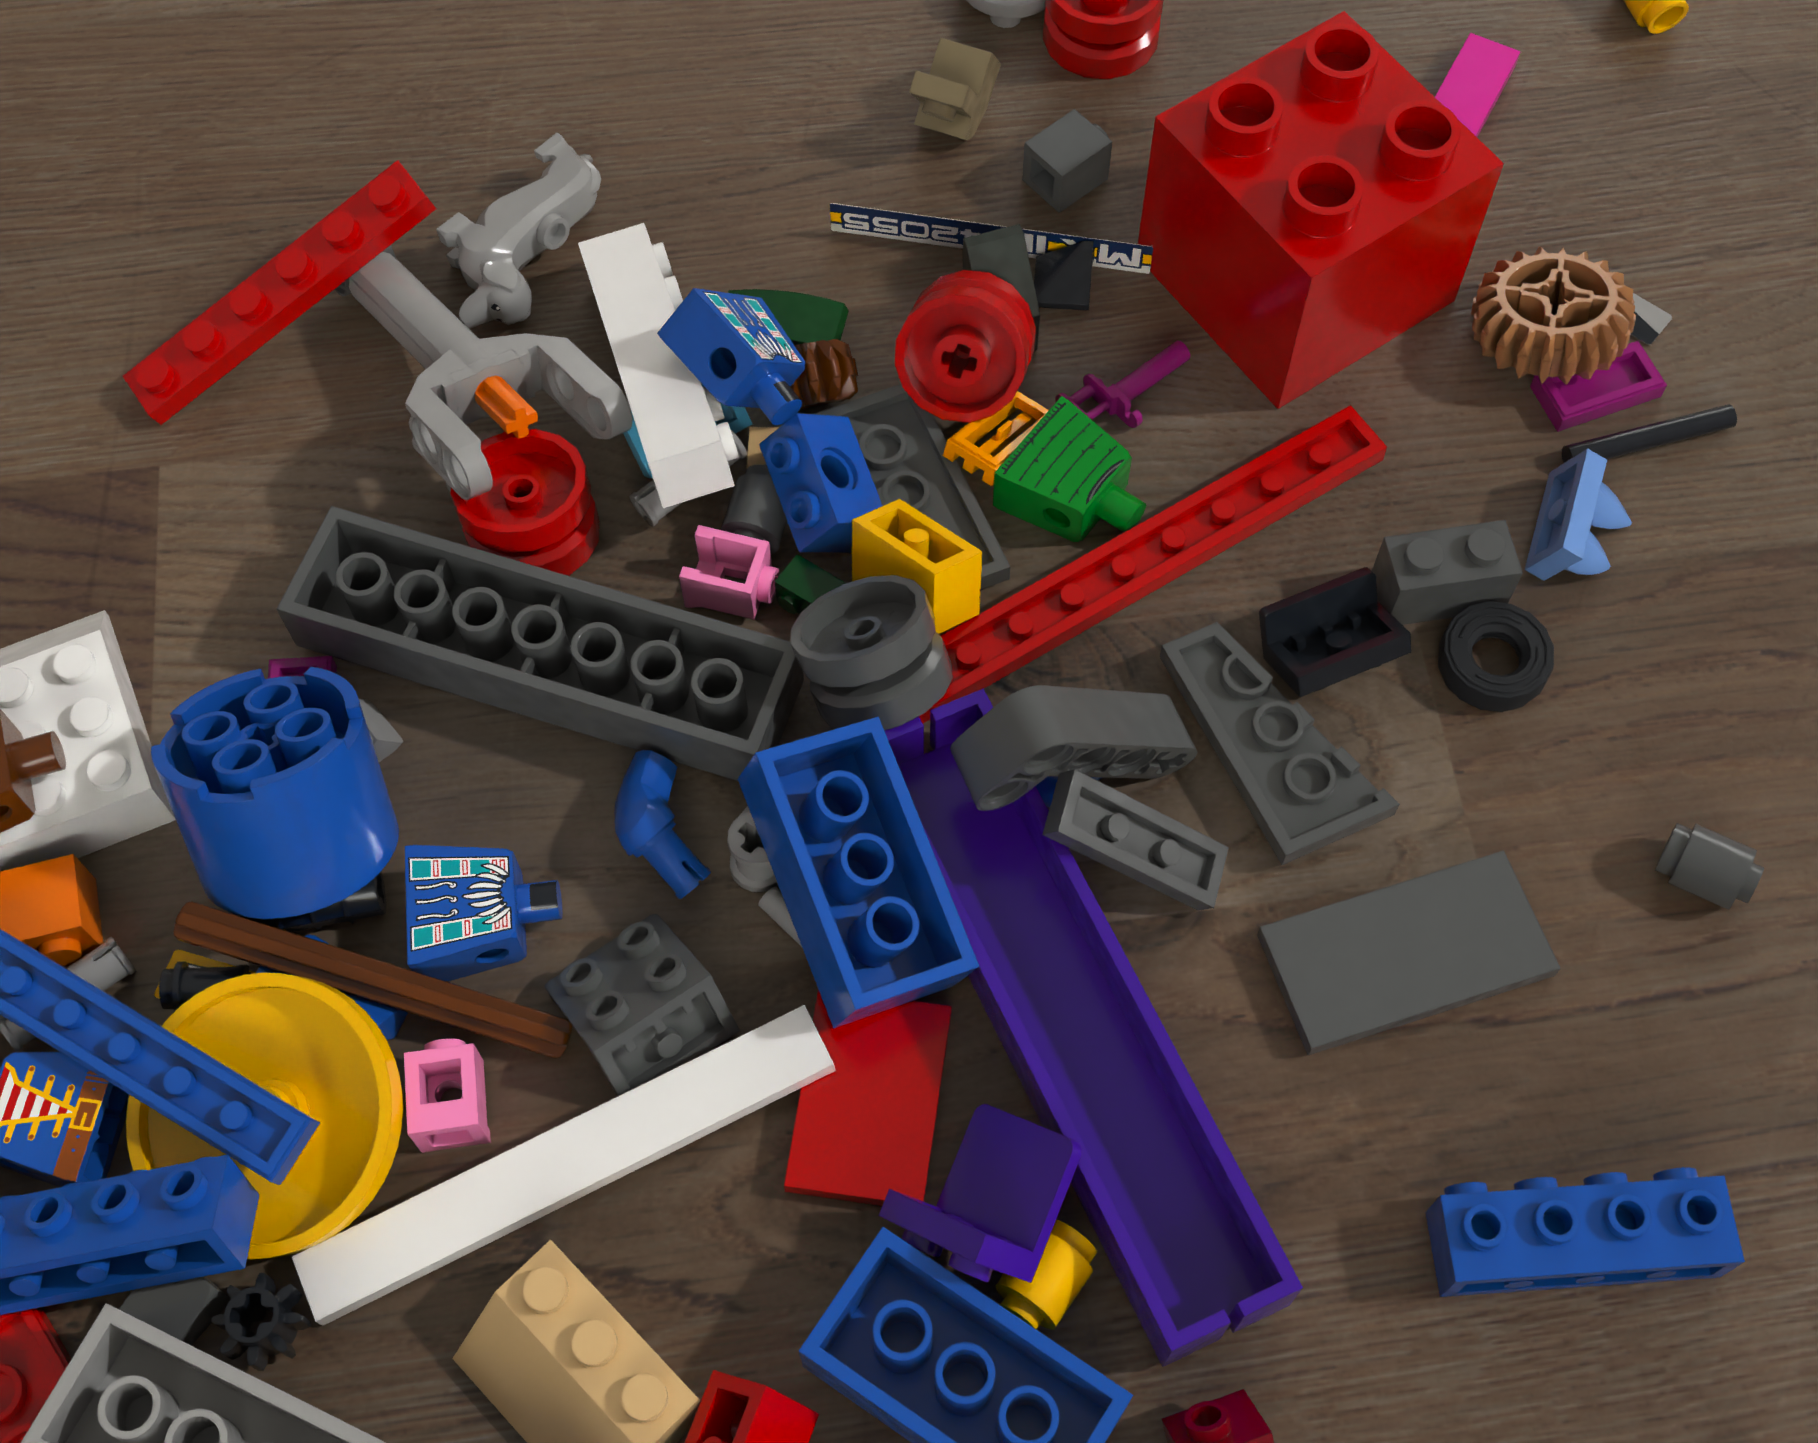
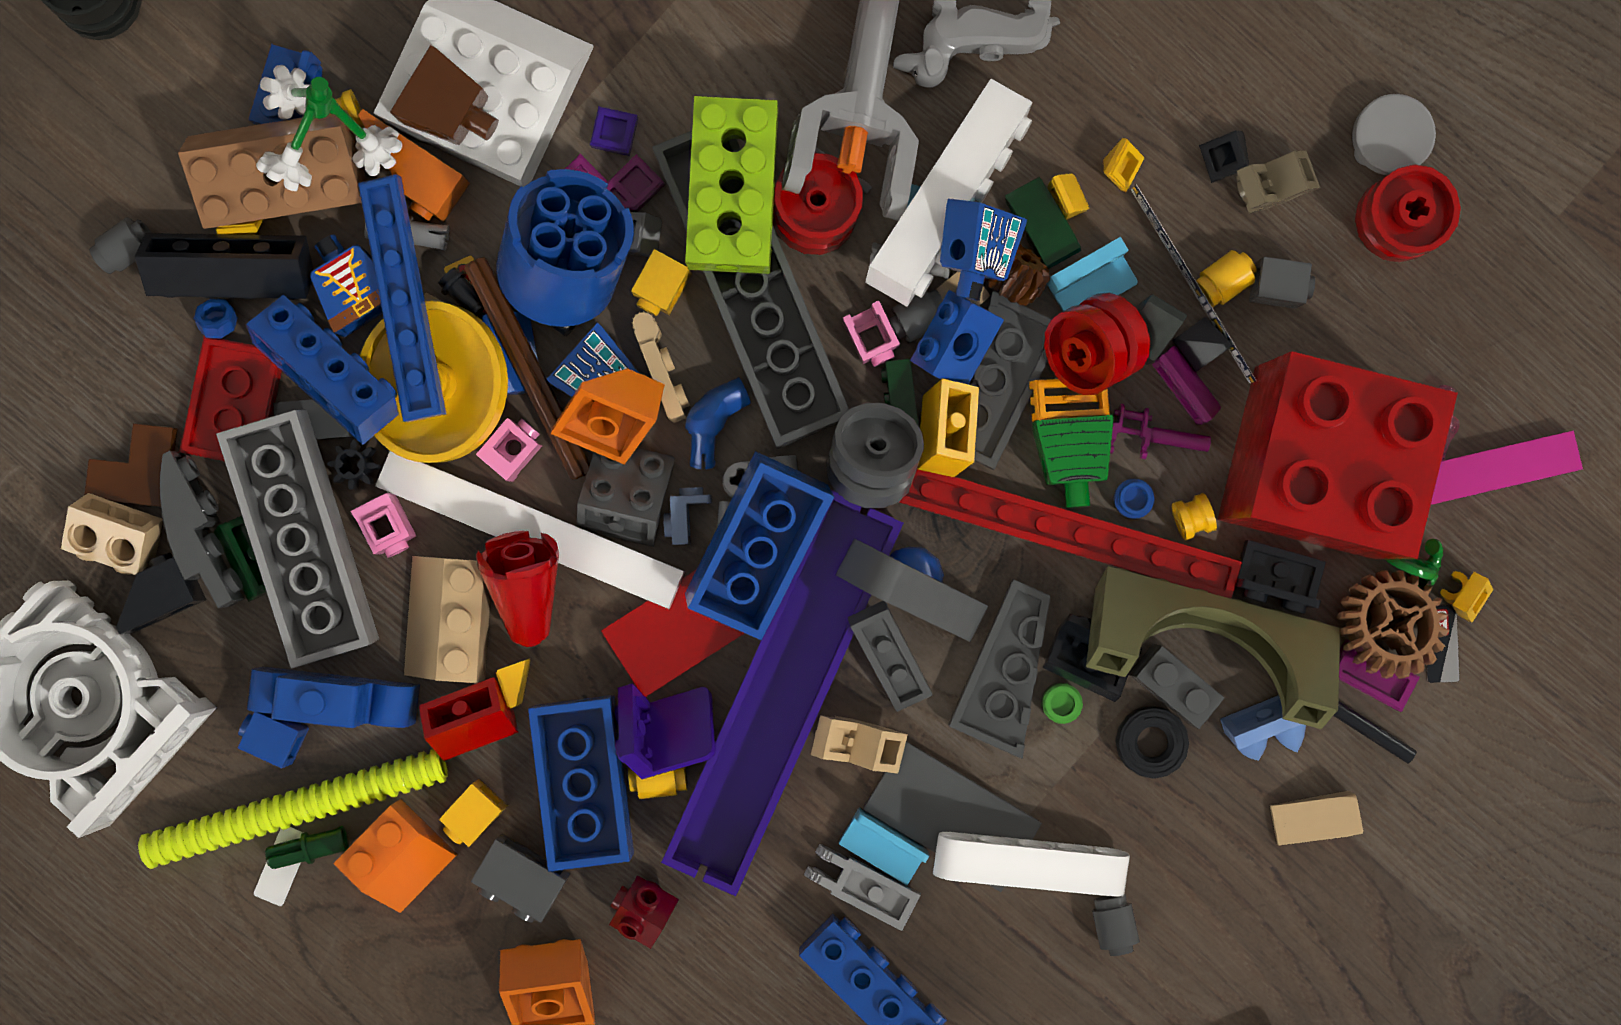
camera: 50 degrees right, 25 degrees up
(215, 658) = (614, 131): none -> dark purple tile
(407, 1365) = (384, 505): none -> bright pink window
(411, 545) = (714, 124): none -> lime brick
(437, 748) = (660, 284): none -> yellow brick
(526, 911) = (611, 414): none -> orange slope
(532, 833) = (659, 365): none -> tan hinge
(630, 1220) = (521, 582): none -> red cone
(735, 964) = (678, 521): none -> sand blue bracket
(740, 1355) = (513, 682): none -> yellow slope
(771, 276) = (1068, 195): none -> yellow slope
(795, 210) = (1122, 164): none -> yellow slope
(879, 319) = (1094, 274): none -> medium azure panel
(883, 121) = (1225, 155): none -> black slope
(1014, 195) = (1227, 277): none -> yellow brick
(1097, 326) = (1186, 386): none -> magenta slope
(1178, 462) = (1133, 498): none -> blue plate
(1219, 974) = (859, 743): none -> tan brick
(1254, 415) = (1194, 516): none -> yellow wheel
(1319, 535) = (1293, 650): none -> olive arch
(1362, 718) = (1061, 703): none -> bright green tile
(1381, 1061) = (883, 846): none -> medium azure panel
(1402, 383) = (1279, 575): none -> black bracket
(1423, 1131) = (866, 888): none -> light grey hinge
(1501, 247) = (1424, 569): none -> green piece
(1547, 894) = (1031, 864): none -> white beam
(1577, 228) = (1471, 597): none -> yellow tile
(1736, 554) = (1317, 818): none -> tan slope

